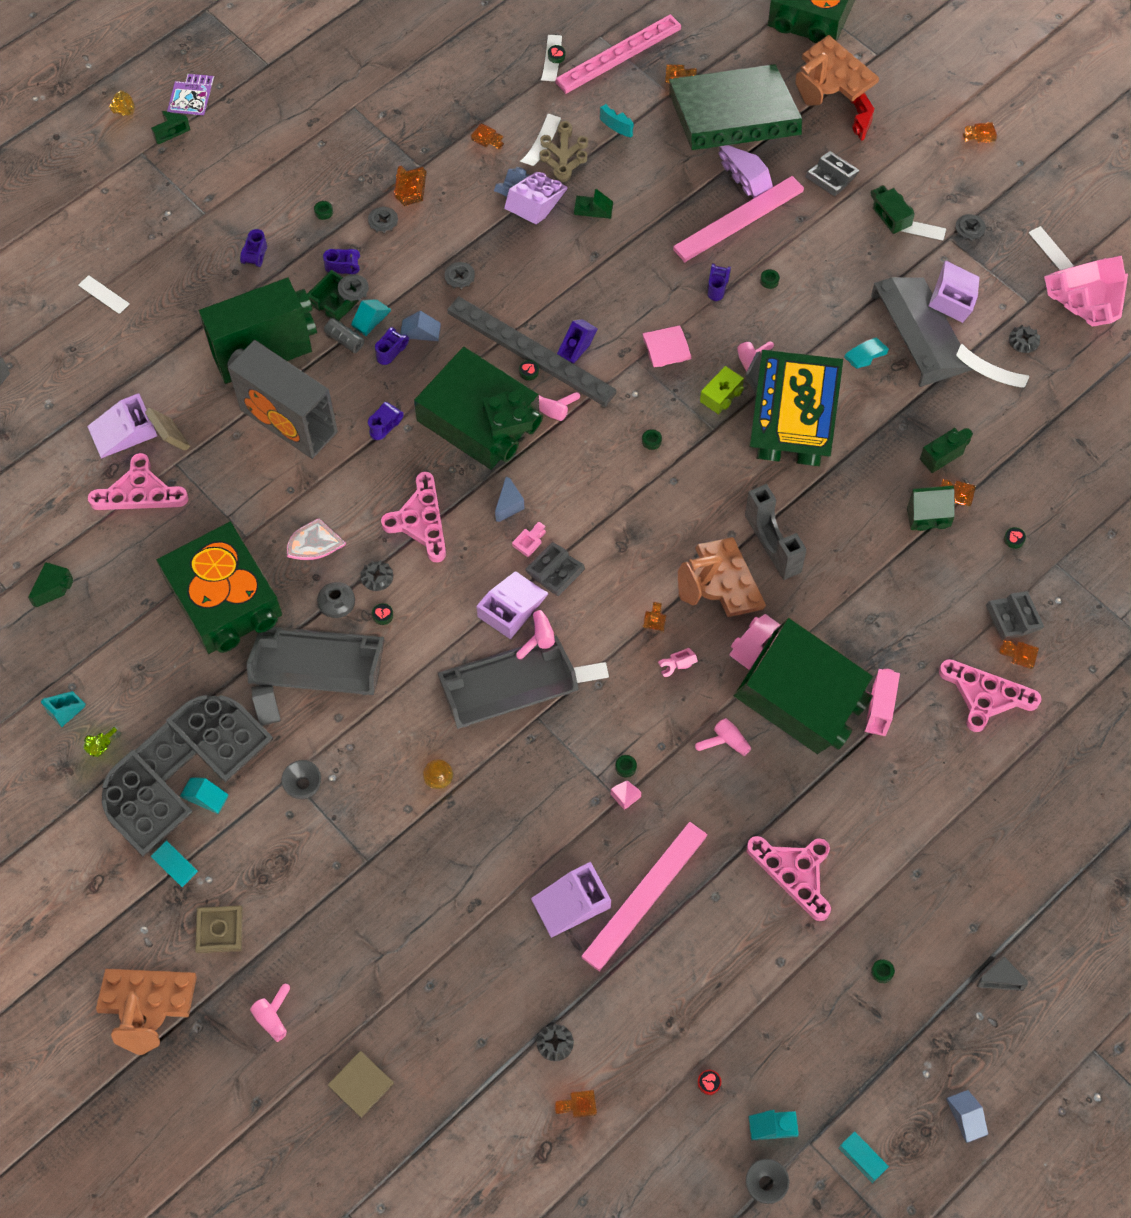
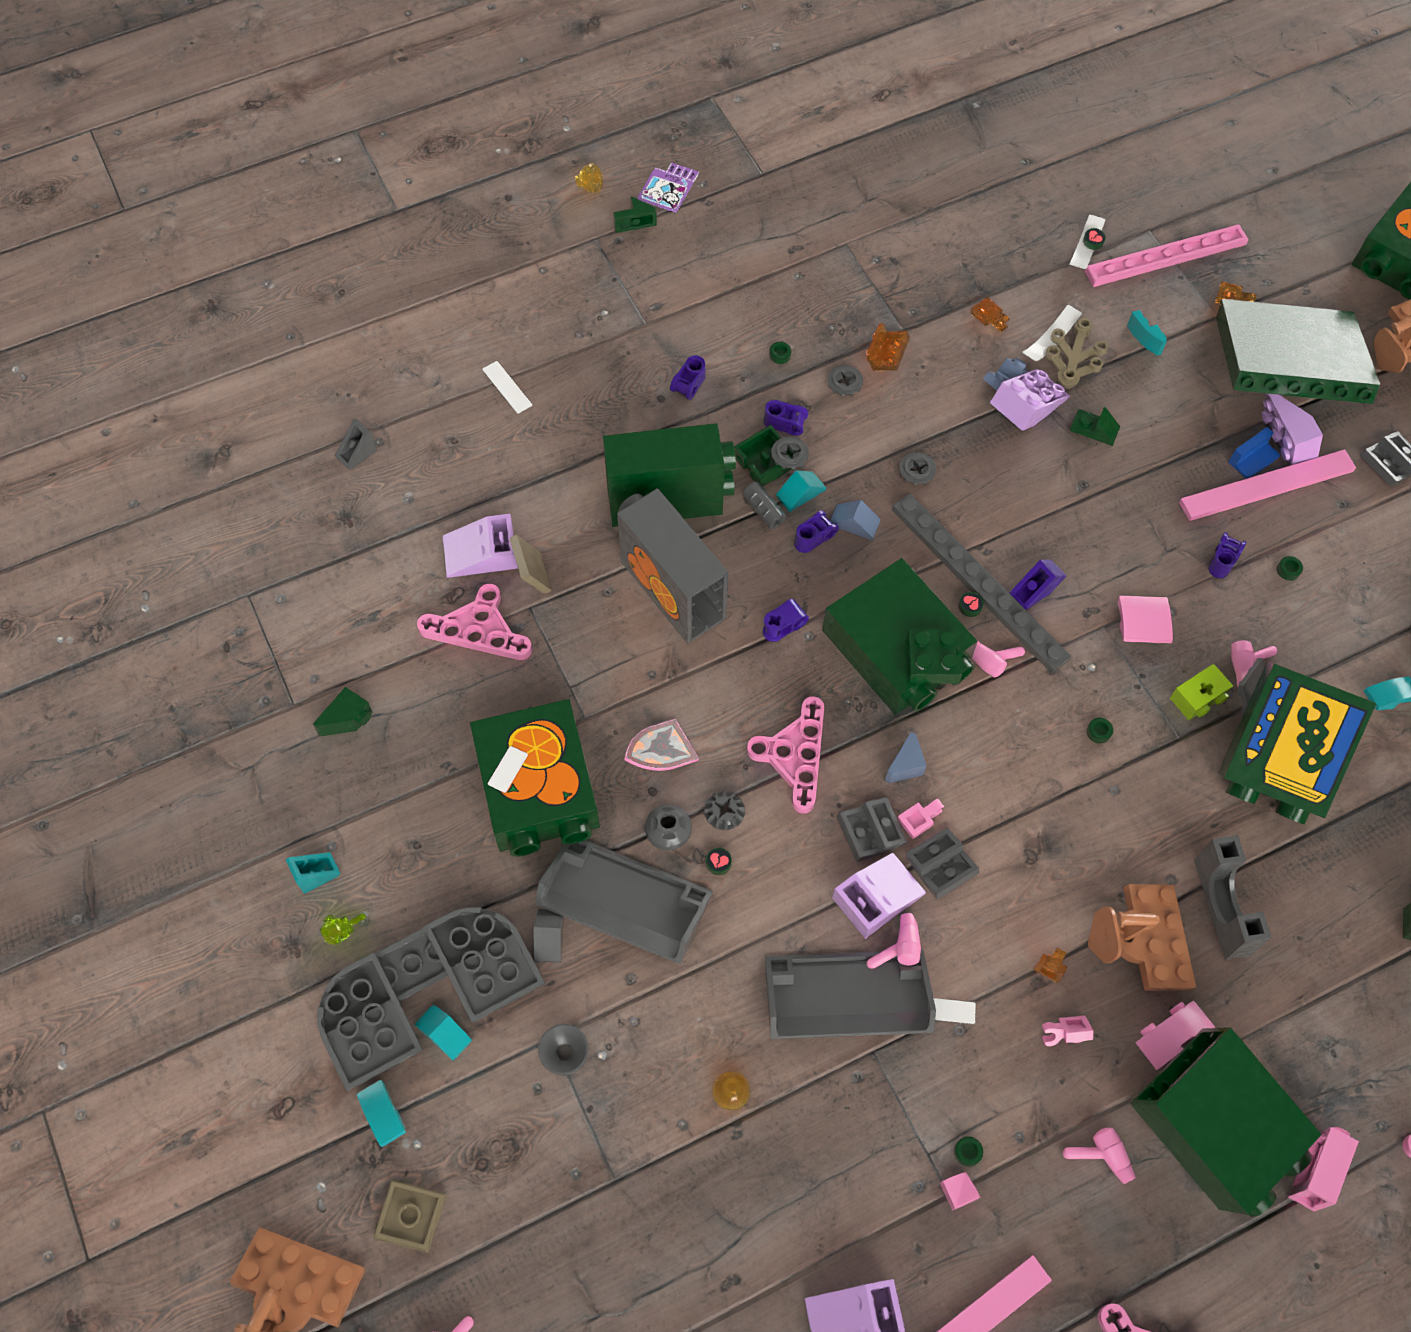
camera: 15 degrees right, 0 degrees up
(197, 586) = (507, 769): none -> white sticker
(494, 558) = (871, 829): none -> dark grey slope
(723, 197) = (1254, 454): none -> blue panel

